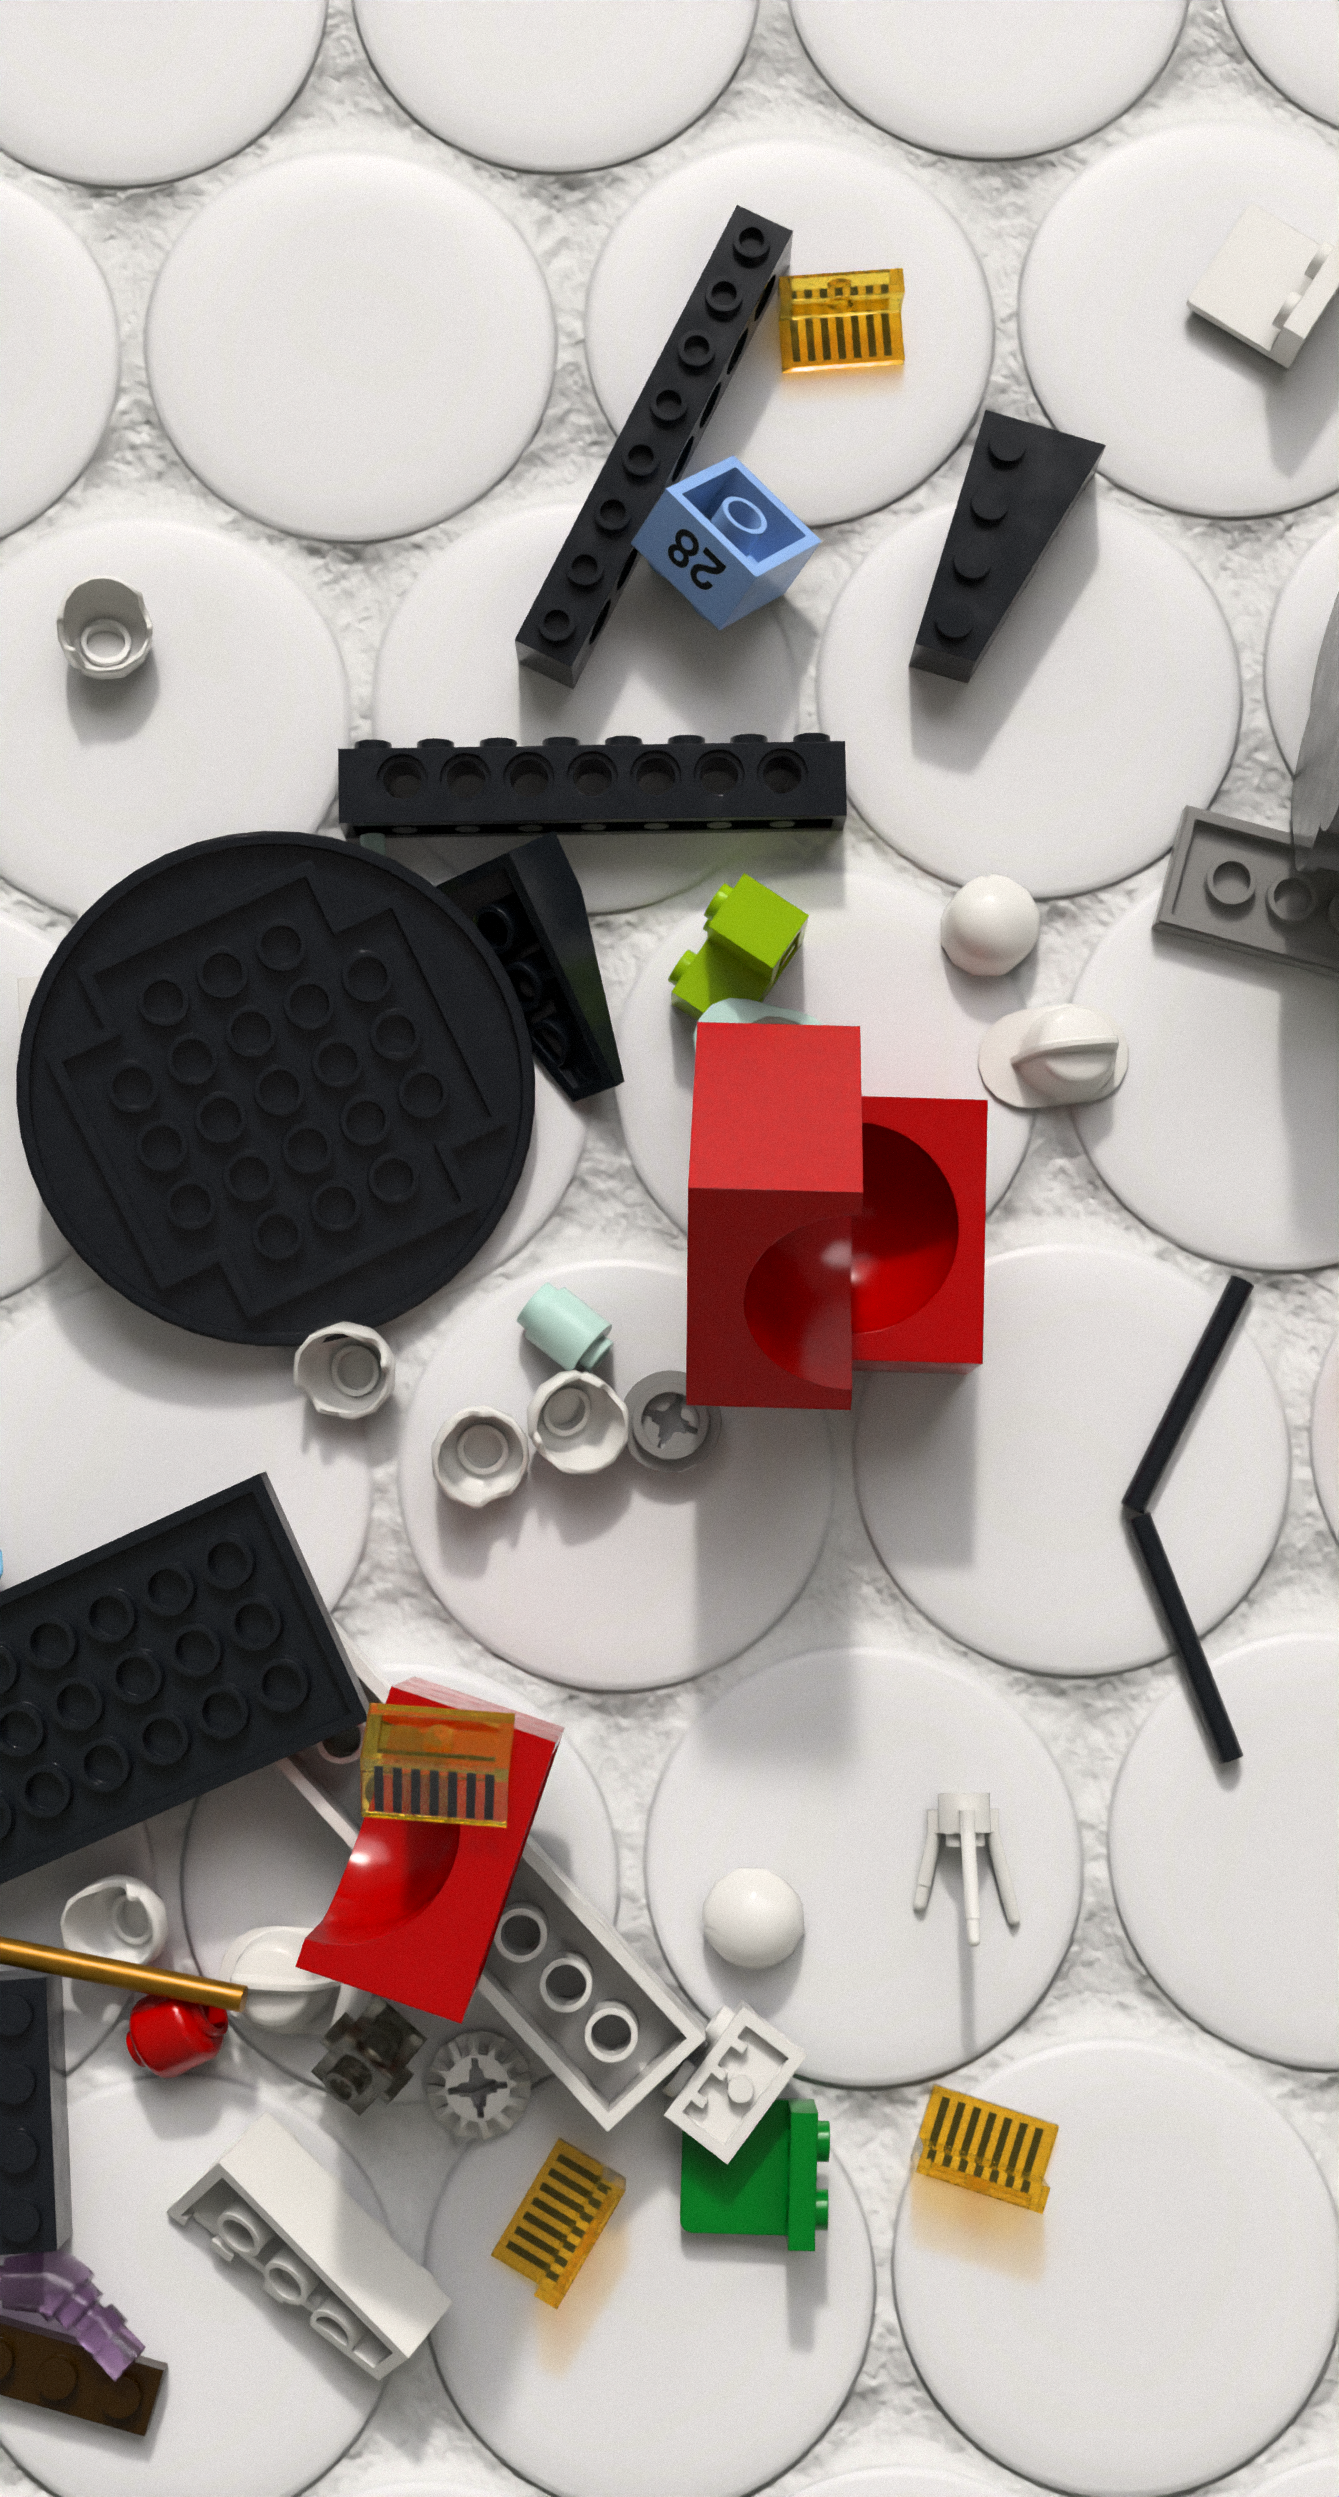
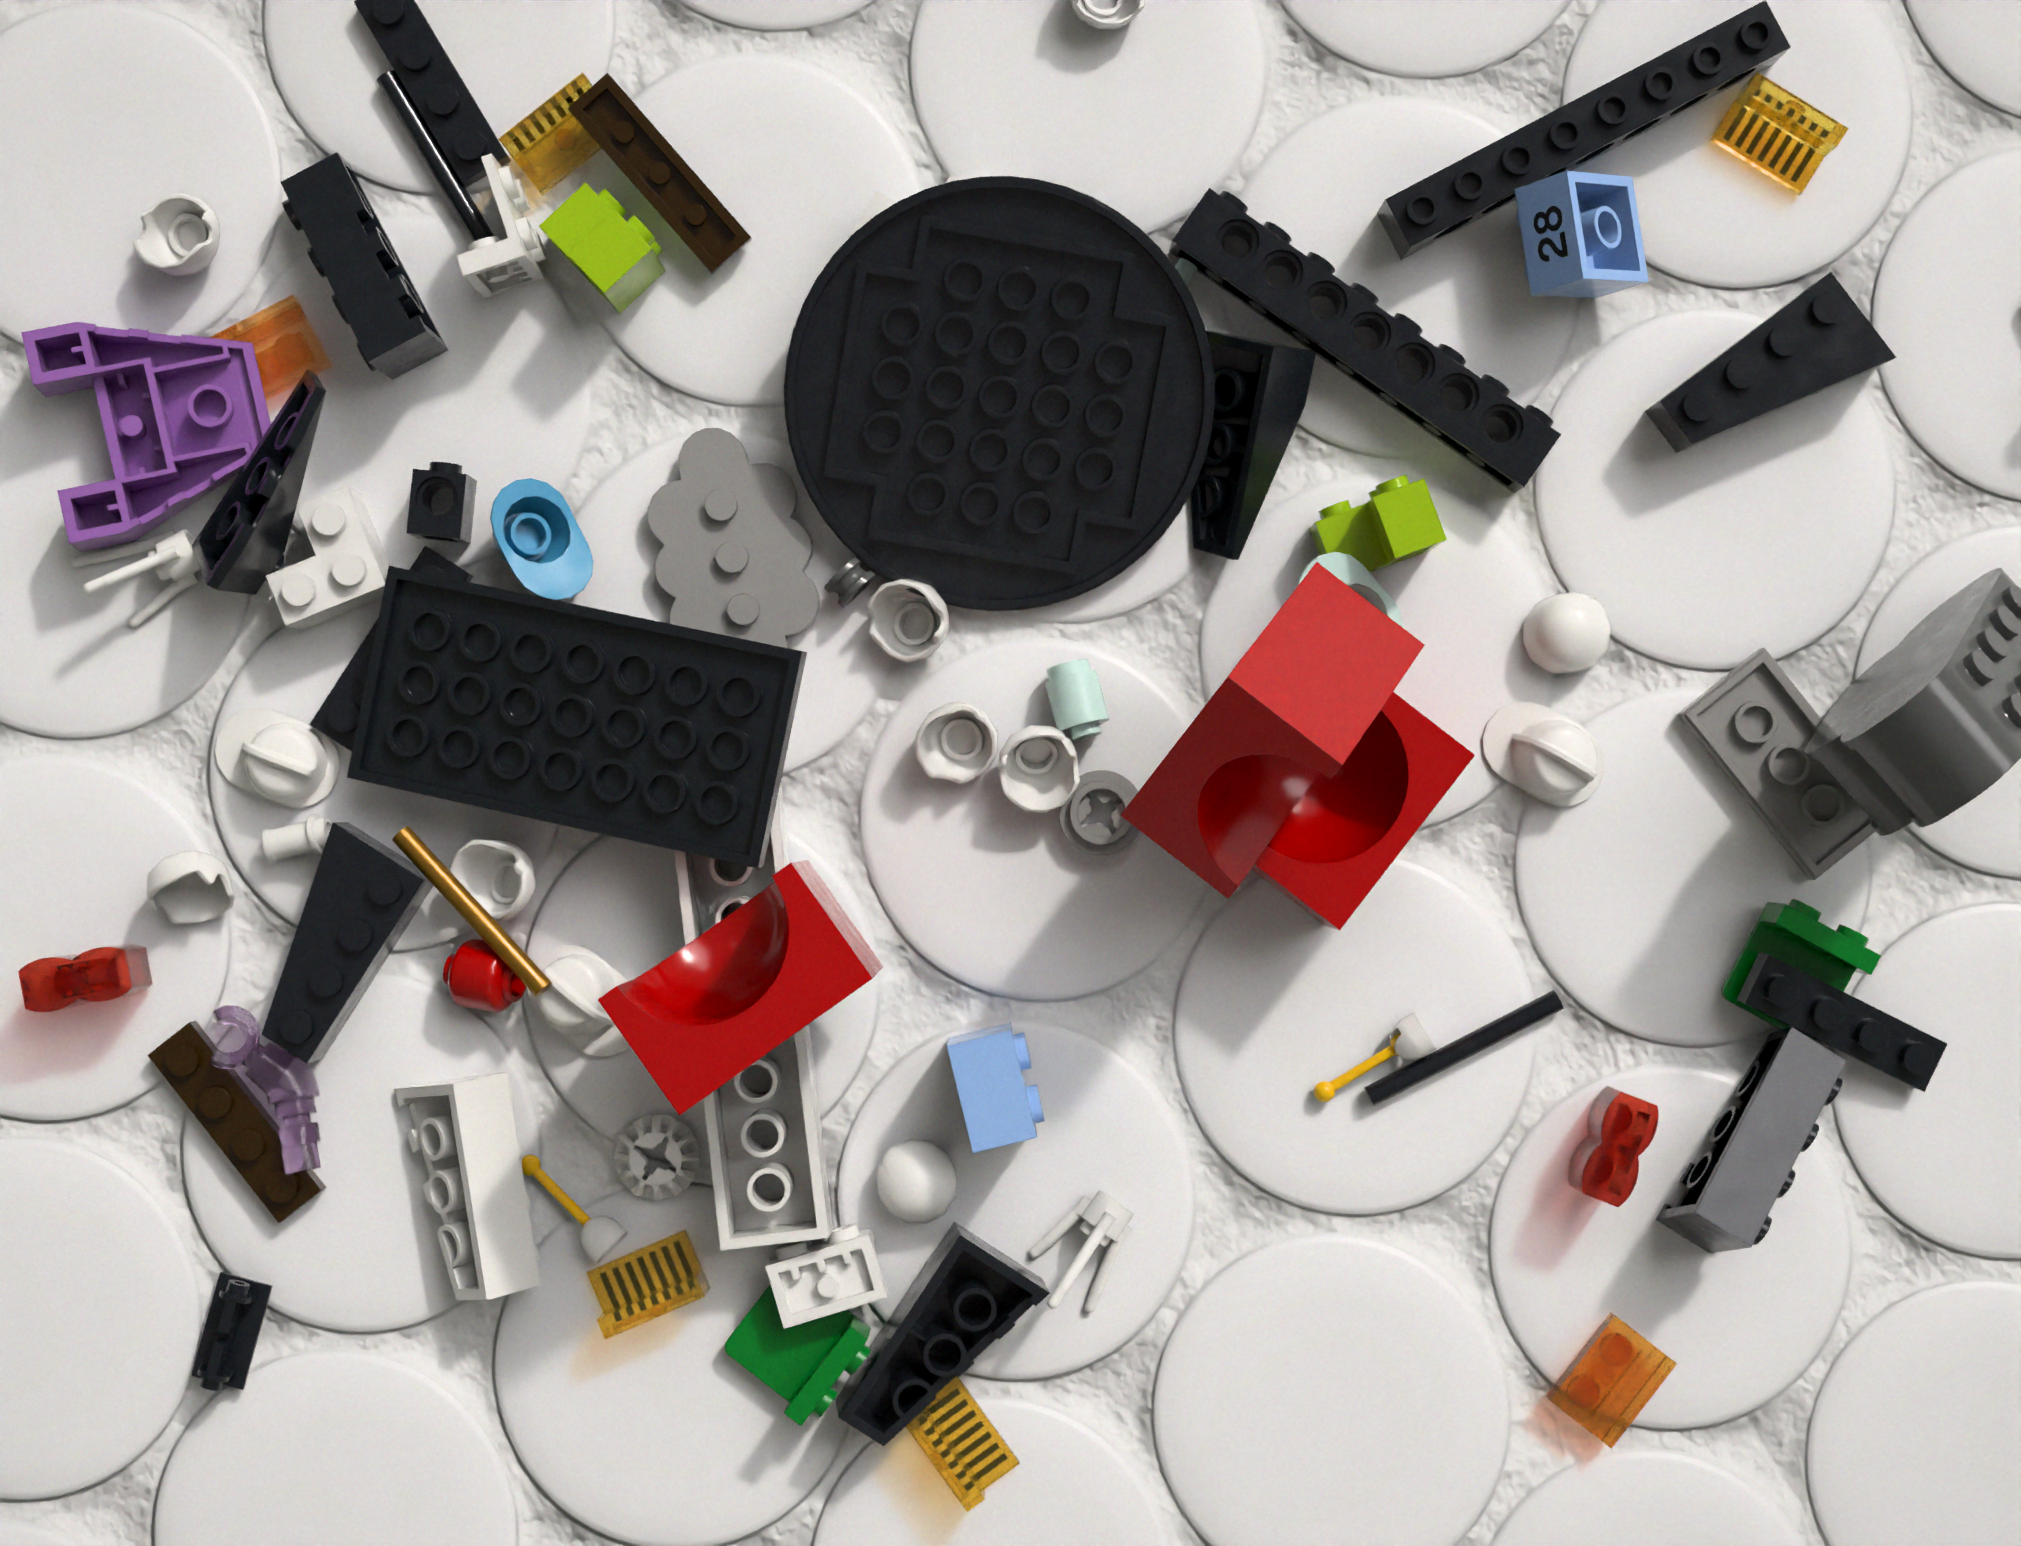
camera: 35 degrees right, 5 degrees up
(120, 1420) = (733, 544): none -> light grey plate
(262, 1374) = (850, 581): none -> dark grey bush
(368, 2056) = (598, 1085): clear smoke brick -> none
(436, 1764) = (784, 936): clear yellow panel -> none
(475, 2207) = (598, 1233): none -> hinge
(759, 1768) = (993, 1086): none -> light blue brick
(881, 2045) = (943, 1322): none -> black wedge
(1128, 1427) = (1406, 1040): none -> hinge
(1184, 1638) = (1340, 1208): black bar -> none

